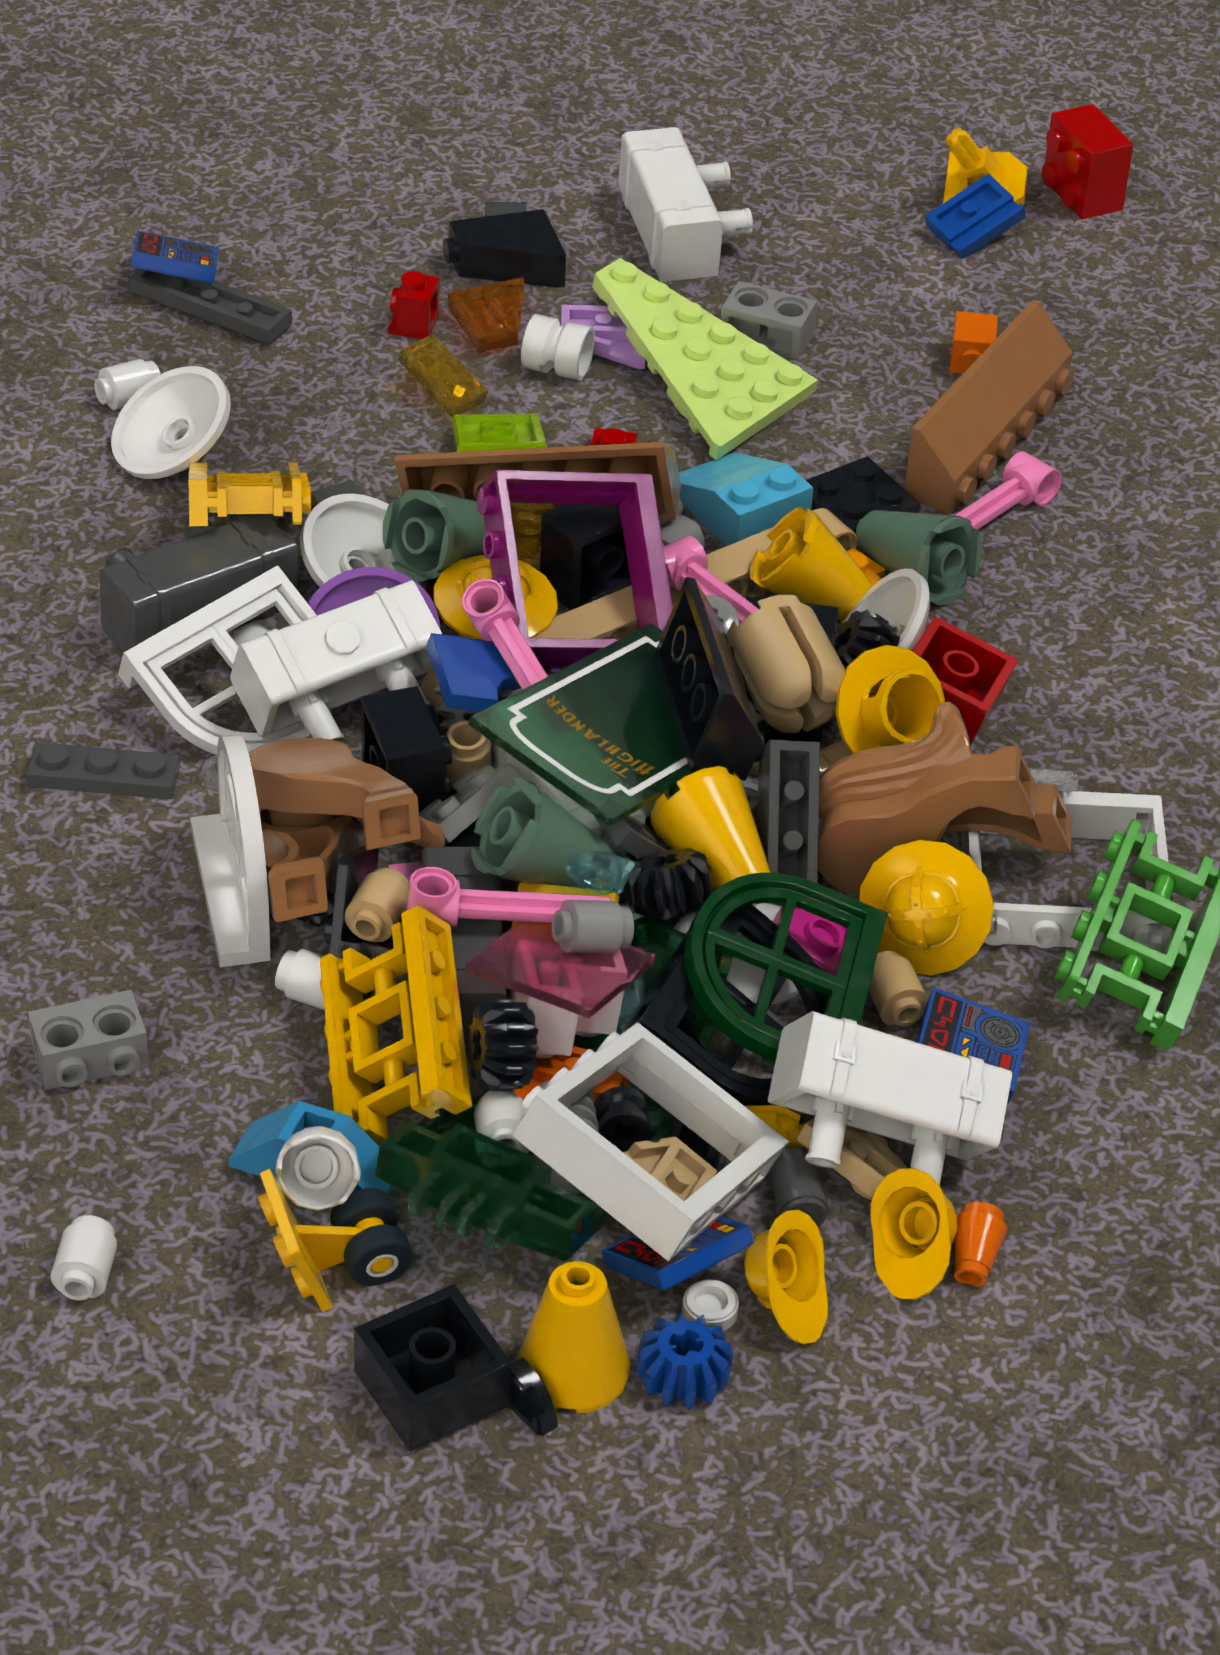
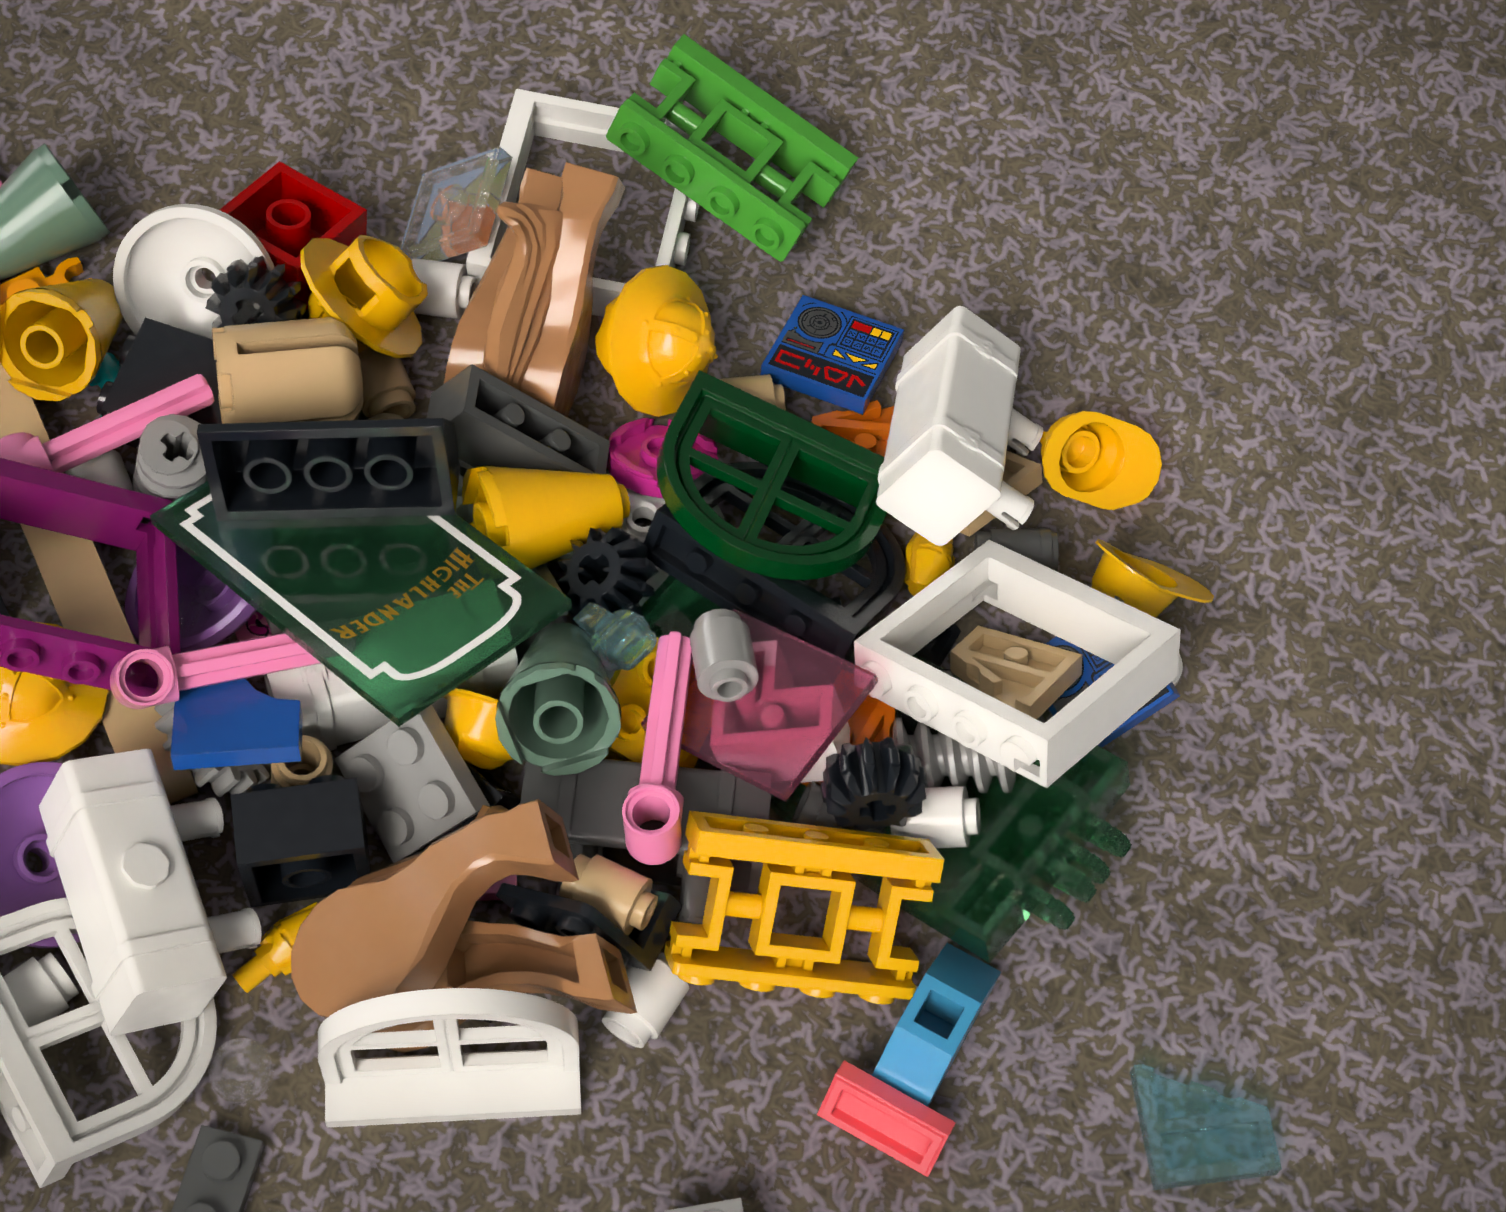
camera: 85 degrees left, 20 degrees up
(231, 1134) = (886, 1118): none -> coral tile
(249, 1352) = (1199, 1134): none -> clear light blue wing
(318, 1168) = (1013, 1012): white hair -> none
(360, 1234) = (1067, 991): plate -> none
(432, 1367) = (1254, 939): black brick -> none
(531, 1399) = (1274, 858): black tile -> none
(577, 1340) = (1225, 800): yellow cone -> none
(684, 1360) = (1242, 722): blue gear -> none
(977, 1242) = (1094, 396): orange cone -> none

